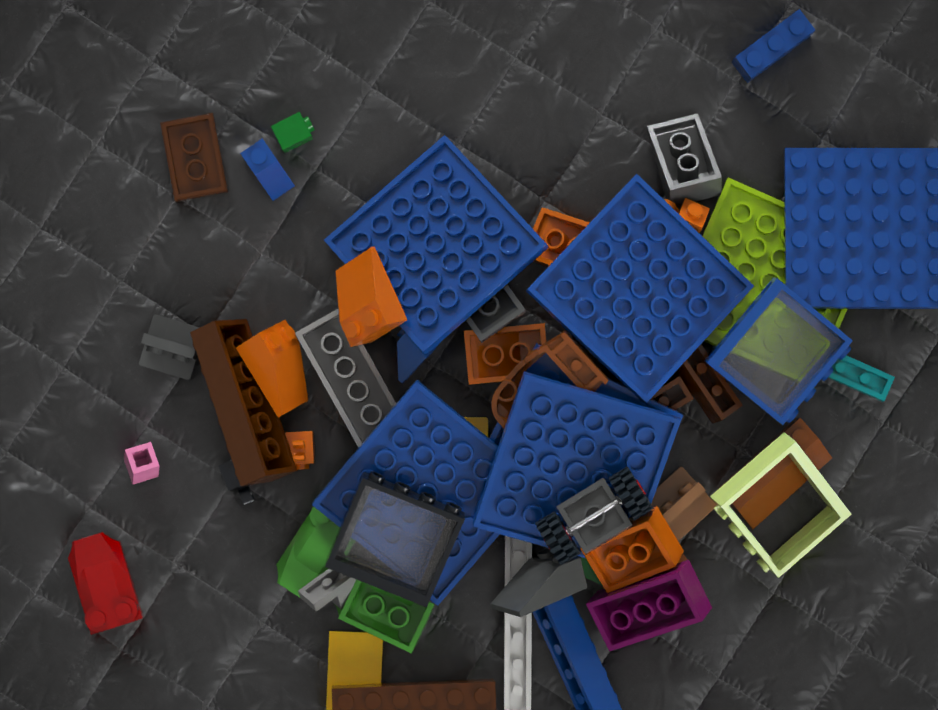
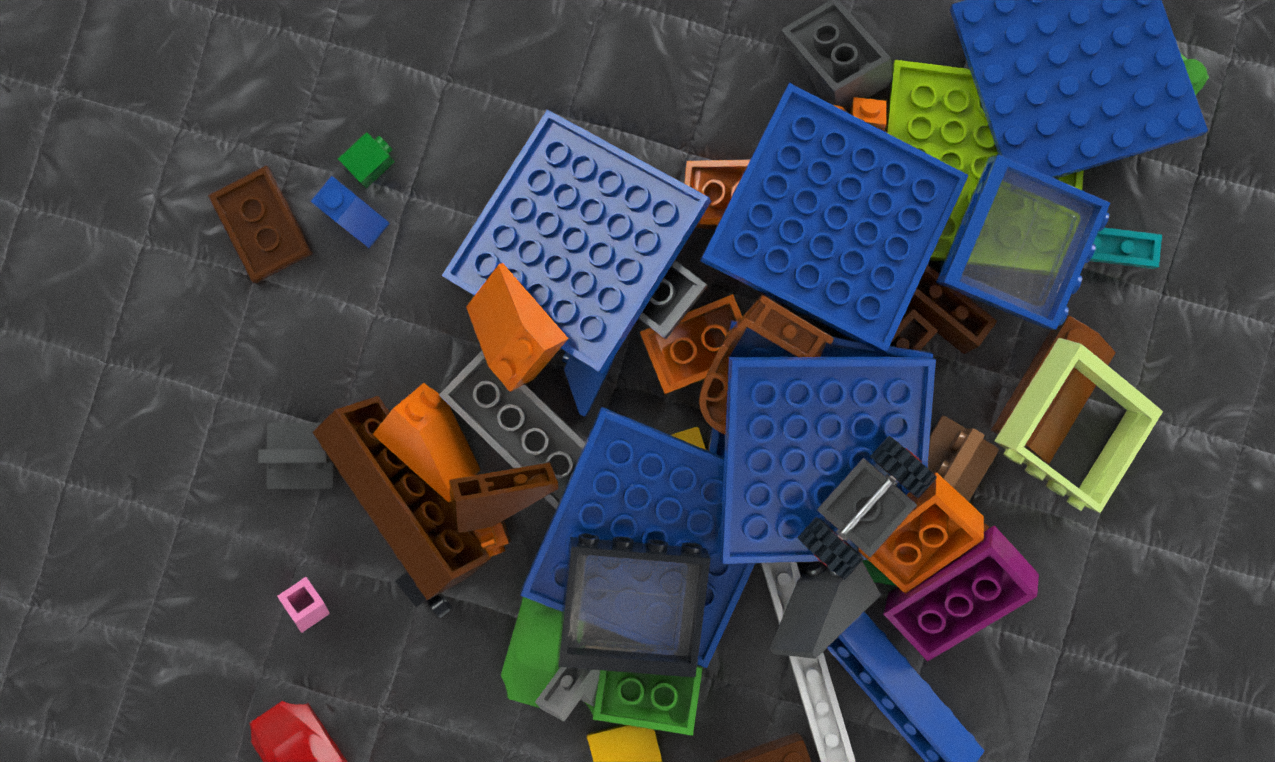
camera: 15 degrees left, 0 degrees up
(317, 423) = (495, 496): none -> reddish brown slope

